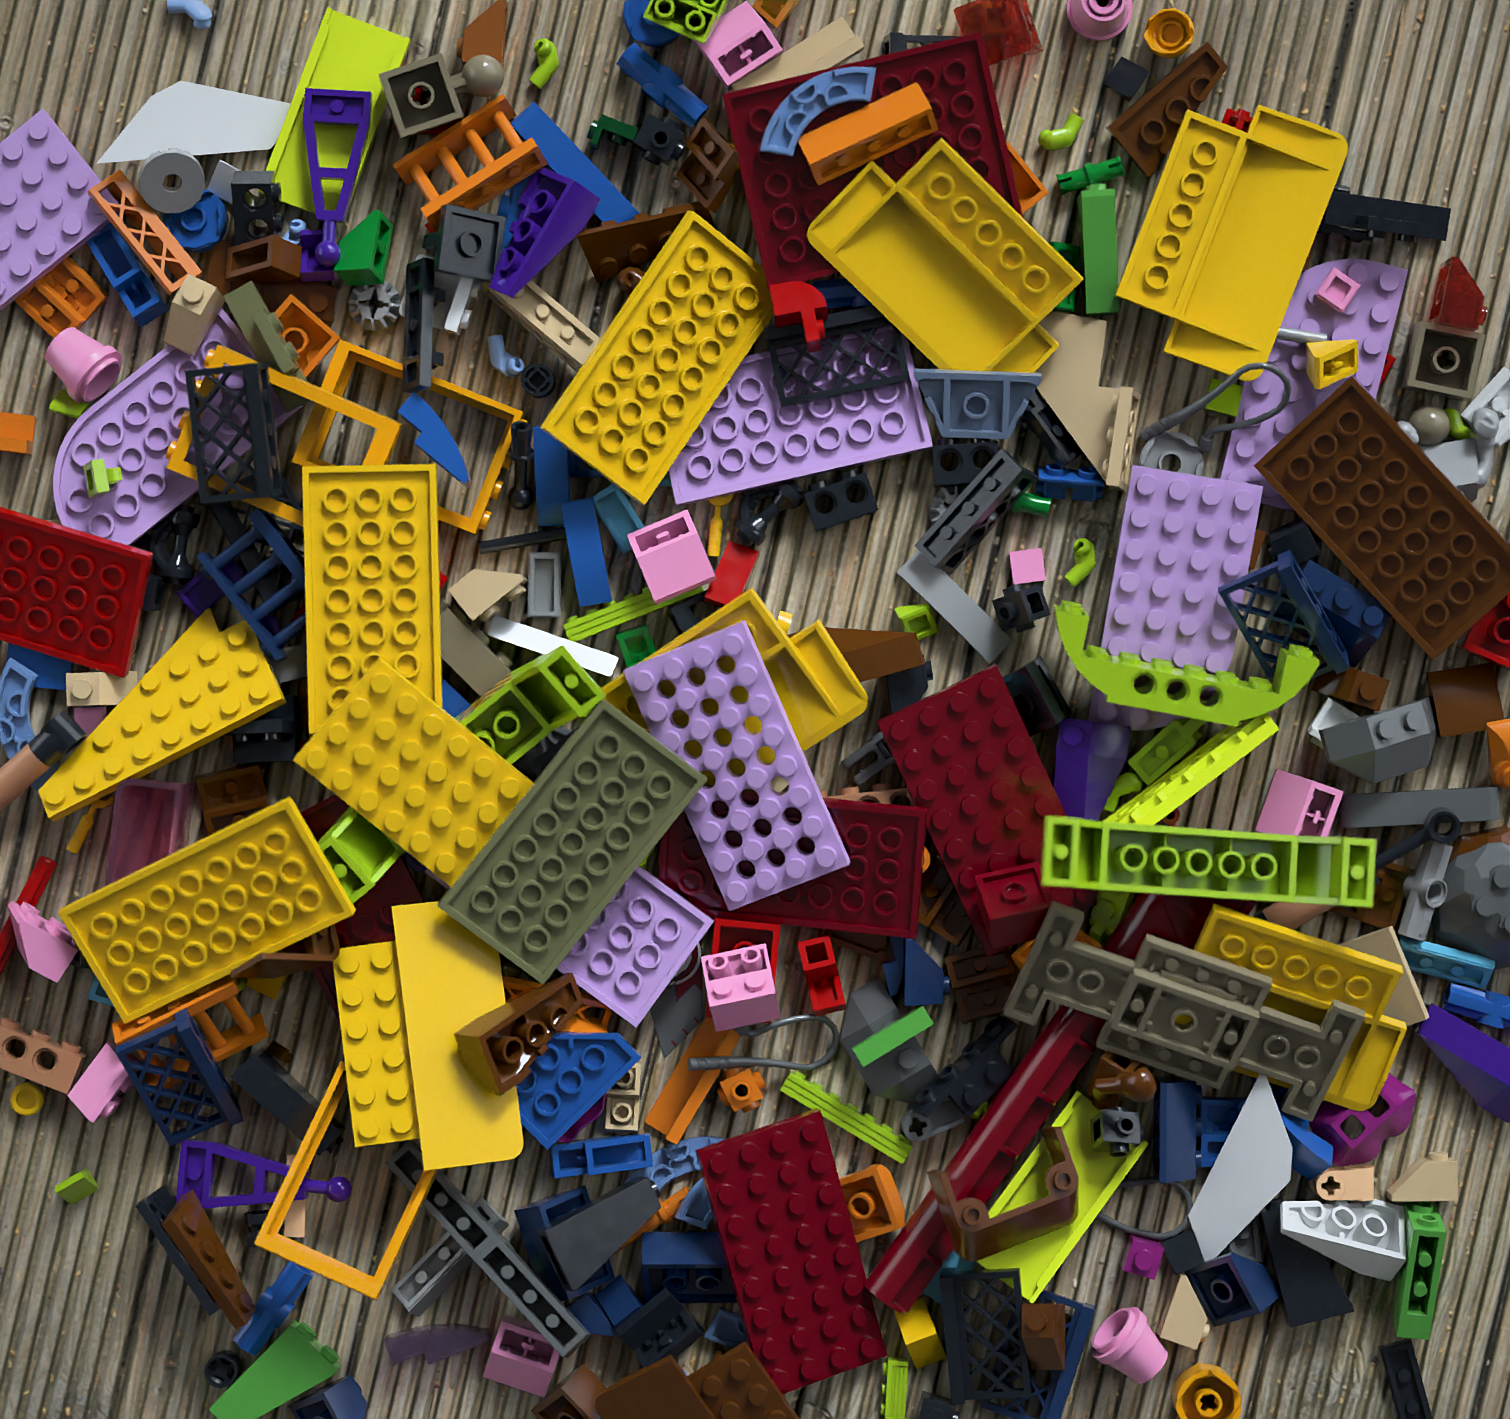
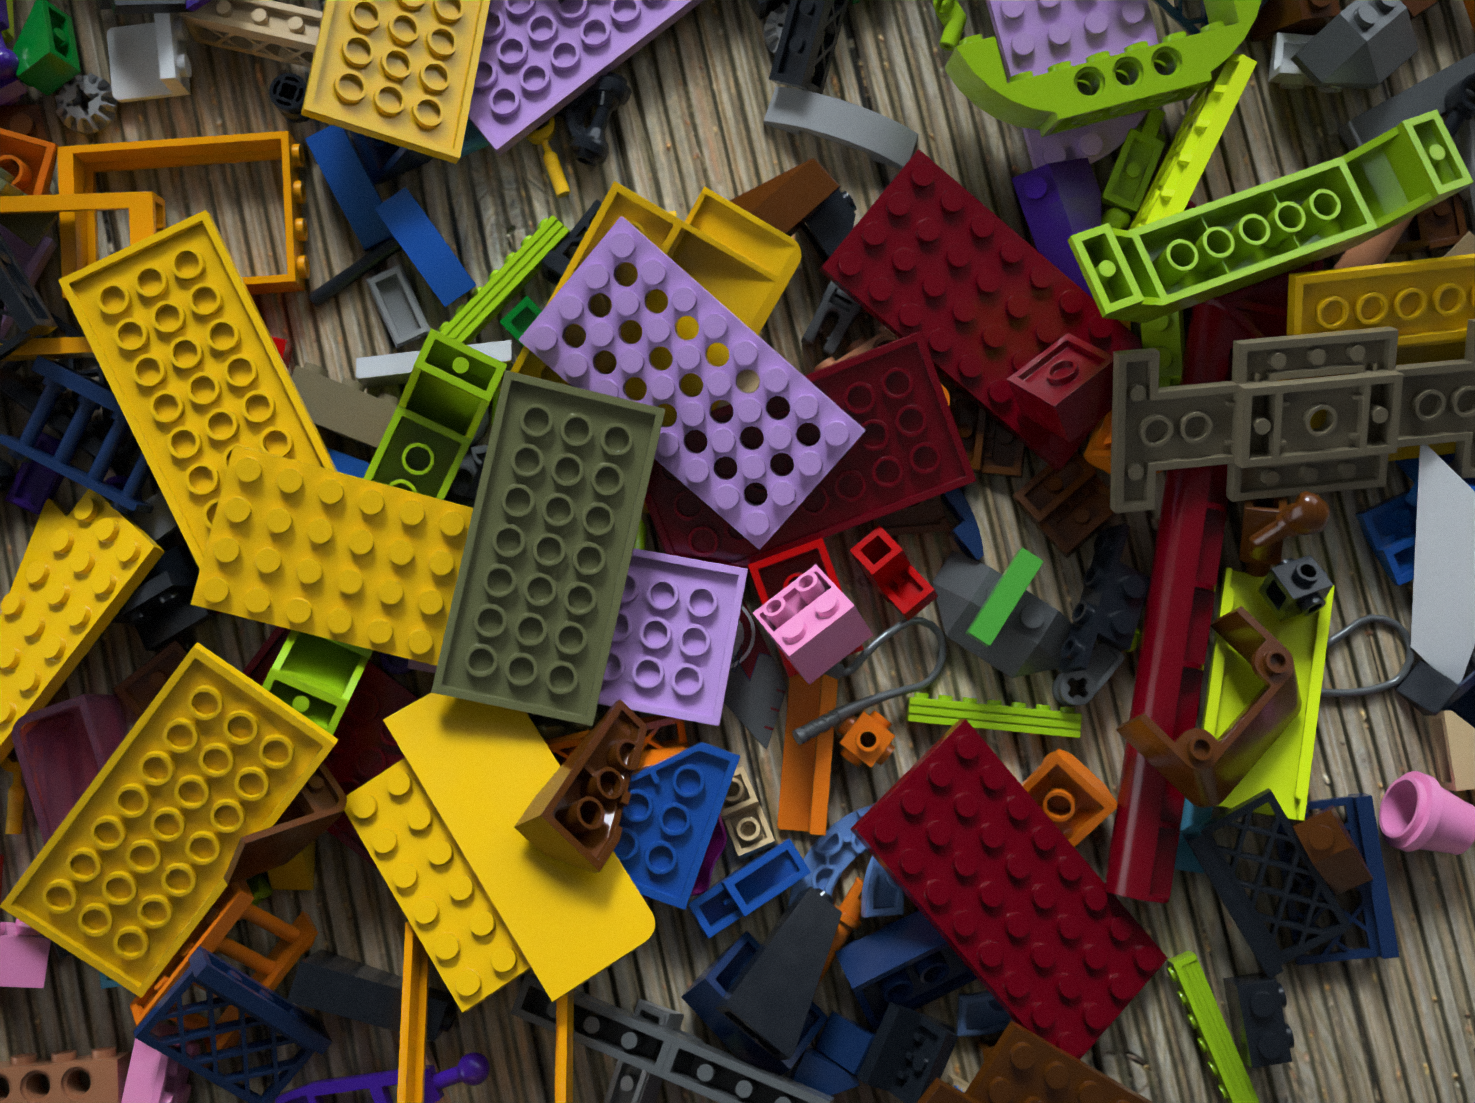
camera: 30 degrees left, 5 degrees down
(279, 1051) = (342, 945): dark brown piece -> none
(418, 327) = (127, 68): black hinge -> none
(435, 438) = (198, 193): blue slope -> none
(484, 590) = (336, 332): tan slope -> none
(501, 360) = (246, 98): light blue arm -> none
(520, 495) = (330, 226): black pin -> none
(617, 515) = (448, 201): medium azure tile -> none
(671, 557) = (517, 206): bright pink slope -> none
(732, 574) = (588, 192): red tile -> none
(843, 508) = (677, 78): black brick -> none
(917, 619) = (808, 149): lime slope -> none
(920, 1335) = (1192, 917): yellow slope -> none
(922, 977) = (1000, 520): dark blue slope -> none
(1014, 610) = (911, 90): black brick -> none
(1027, 566) = (896, 51): bright pink tile -> none
(1036, 696) = (976, 169): black bracket -> none
(1142, 1256) = (1388, 713): magenta brick -> none
(1176, 1129) = (1355, 562): dark blue slope -> none
(1298, 806) = (1304, 144): bright pink slope -> none

